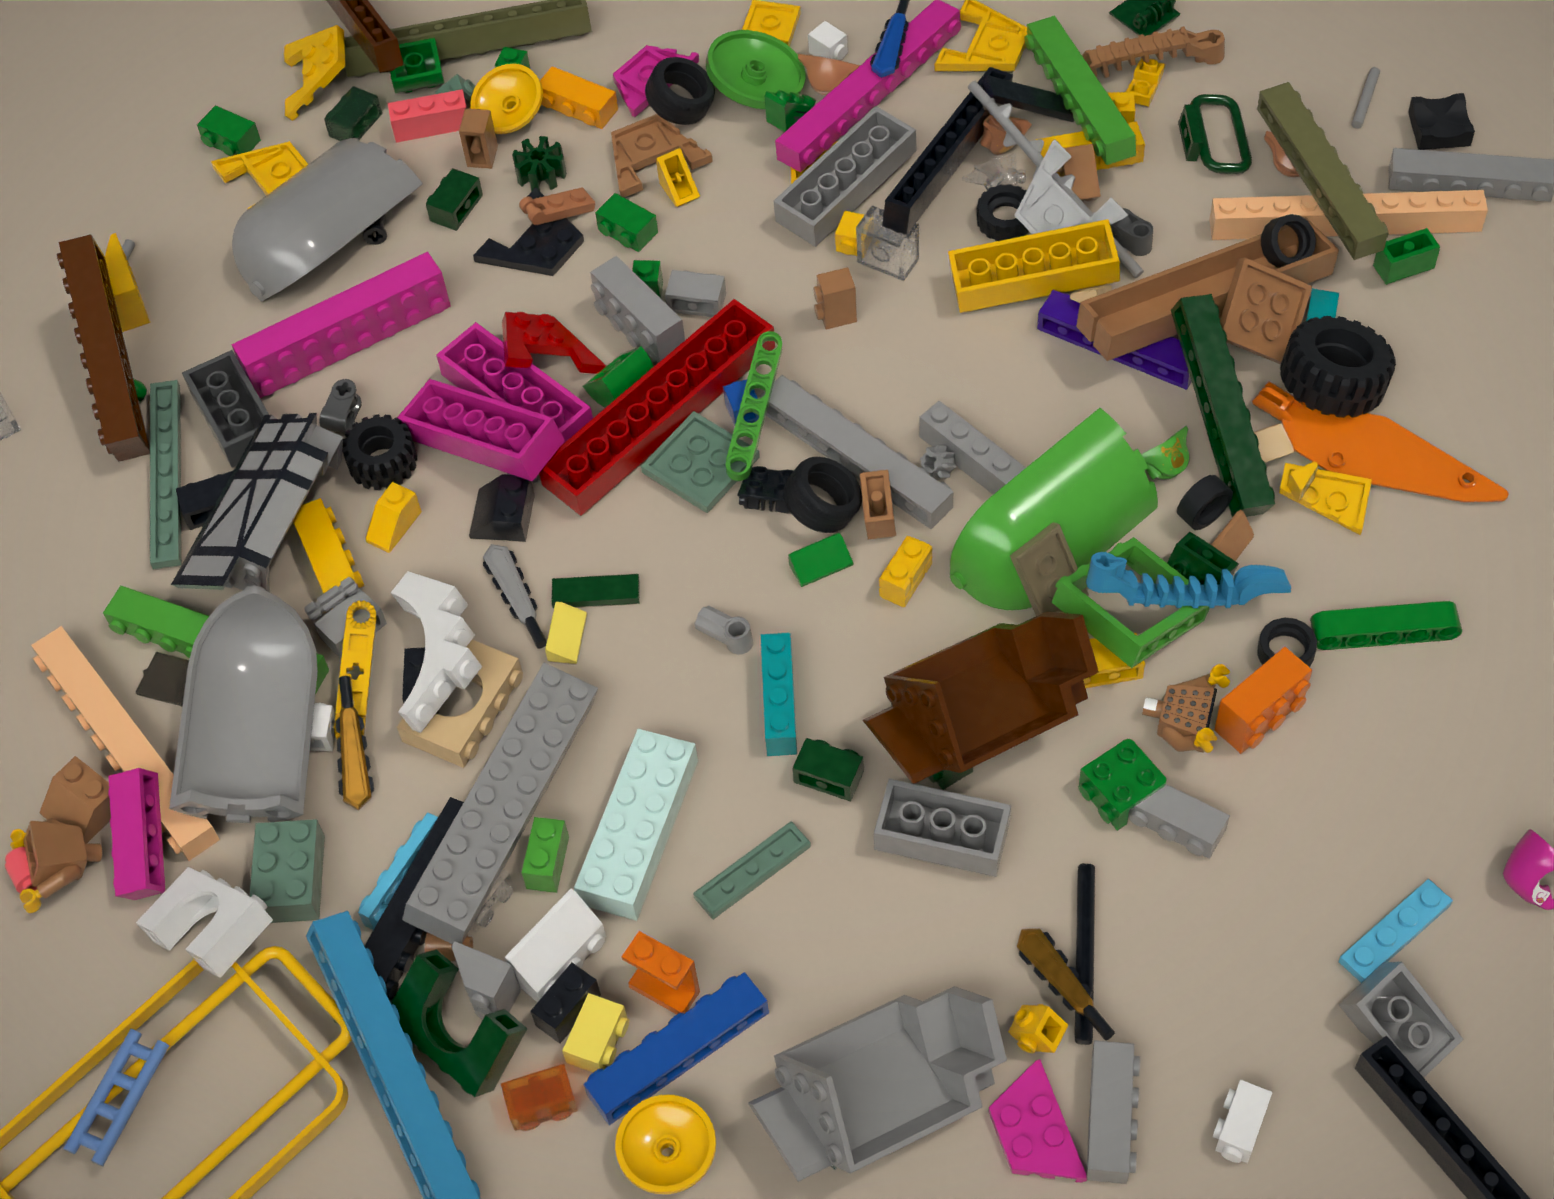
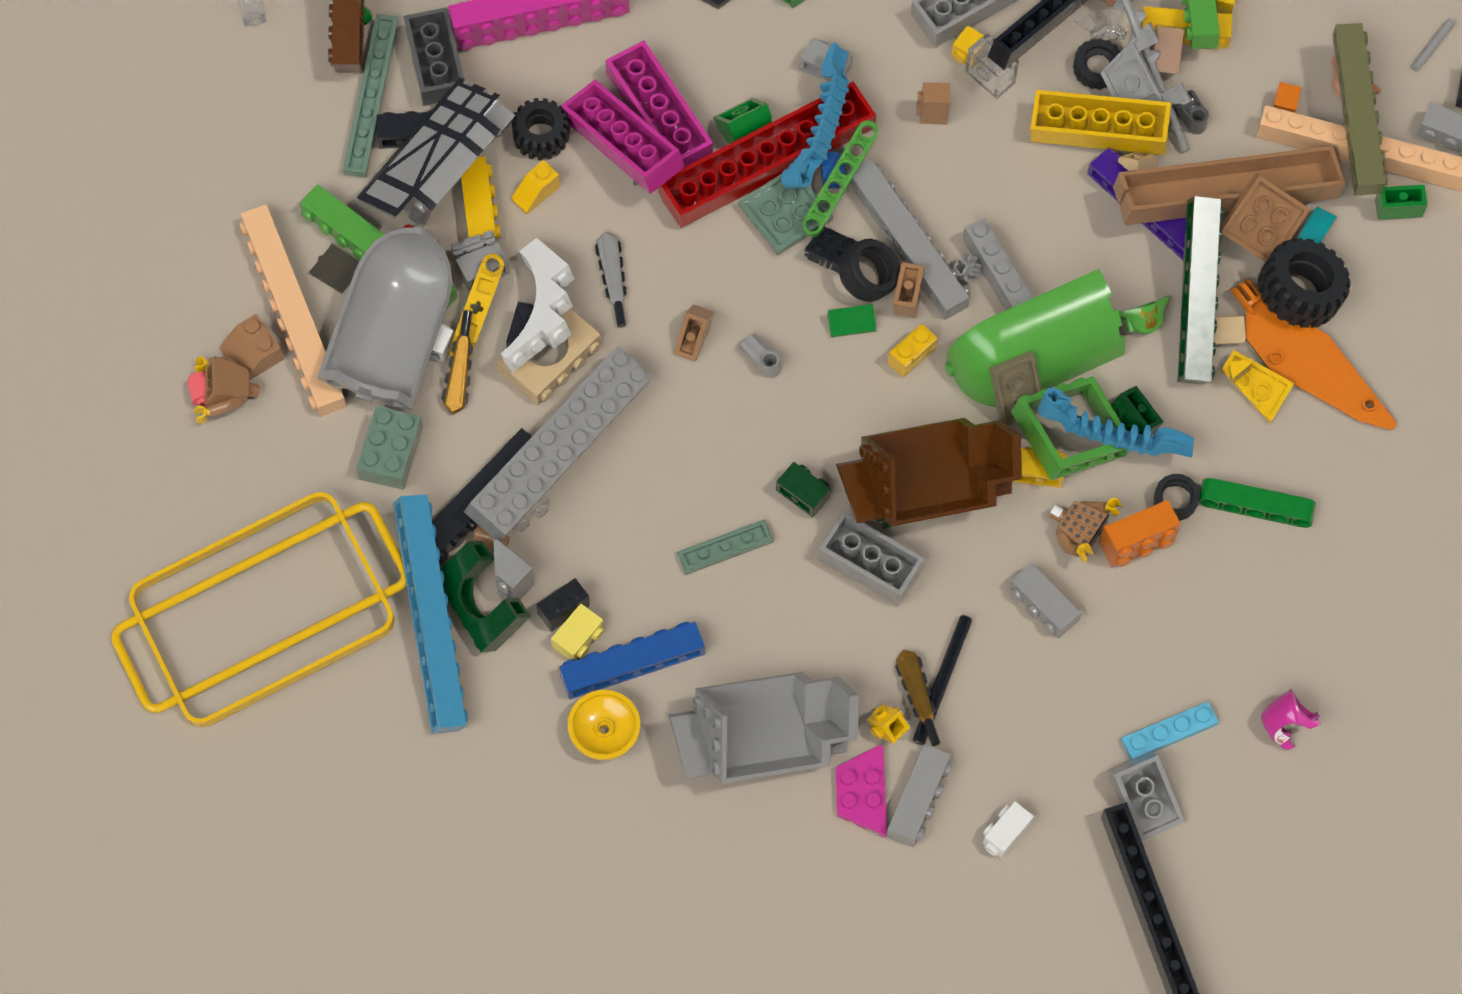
camera: 10 degrees right, 10 degrees up
(119, 1116) = (234, 563): medium blue bar -> none
(136, 834) = (288, 387): dark pink brick -> none
(192, 897) = (321, 447): white arch -> none
(341, 407) = (520, 80): dark grey piece -> none
(374, 905) = (447, 492): medium azure plate -> none
(503, 509) = (621, 206): black slope -> none
(539, 1098) = (526, 666): clear orange brick -> none
(543, 335) = (693, 65): red wing -> none
(545, 854) = (578, 491): bright green brick -> none
(561, 937) = (568, 560): white slope -> none
(565, 634) = (641, 322): light yellow slope -> none
(596, 590) = (672, 293): dark green tile -> none
(633, 626) = (693, 332): none -> medium nougat slope
(636, 310) = (773, 67): light grey brick -> none
(636, 824) = (651, 488): light aqua brick -> none
(650, 273) = (790, 39): green brick -> none
(662, 974) = (636, 605): orange panel -> none
(716, 315) = (802, 169): none -> dark azure piece
(778, 694) = (785, 419): teal brick -> none
(1120, 781) = (1012, 563): green bracket -> none
(1195, 137) = (1278, 37): dark green bar -> none
(1204, 502) = (1158, 364): black tyre -> none
(1231, 185) = (1287, 97): none -> orange brick
(1234, 536) = (1170, 399): medium nougat slope -> none
(1270, 236) = (1293, 157): black tyre -> none

